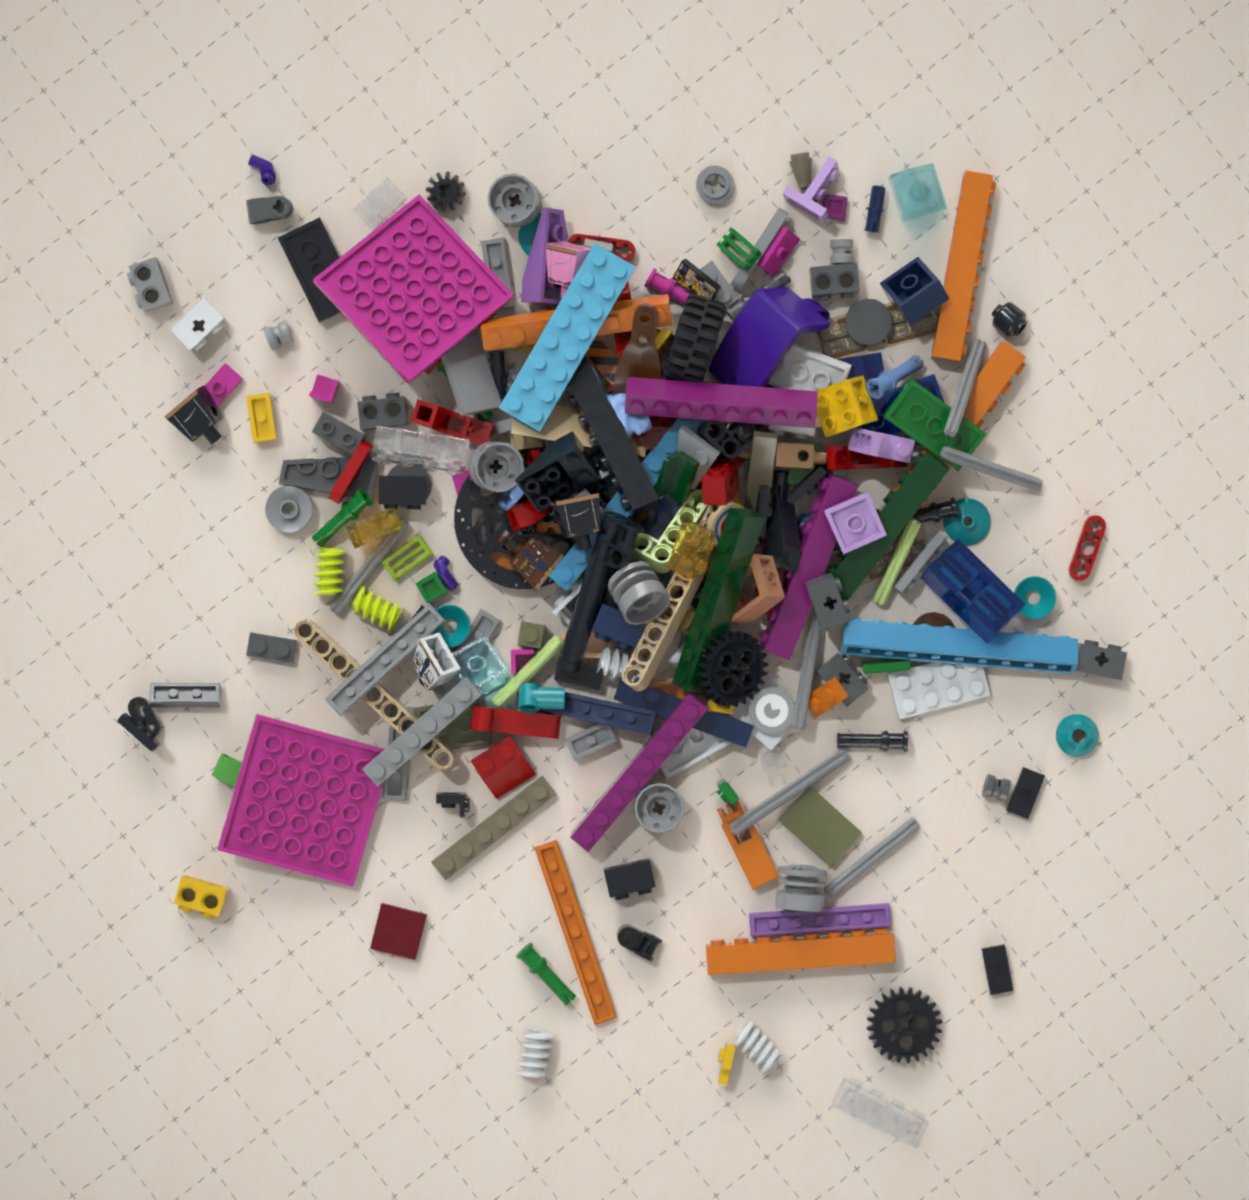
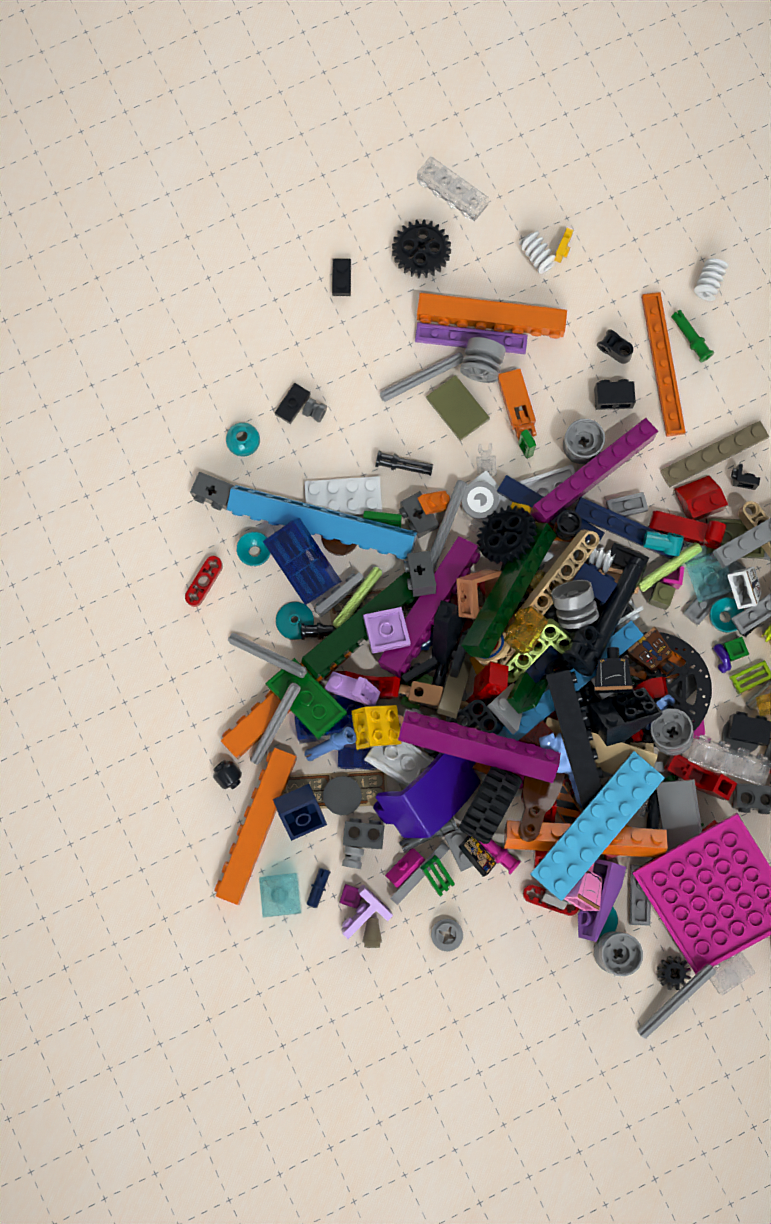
camera: 170 degrees left, 10 degrees down
(438, 160) = (676, 1001): none -> light grey axle
(661, 695) = (567, 525): none -> black wheel
(662, 339) = (515, 812): yellow plate -> none
(789, 792) = (477, 436): light grey axle -> none

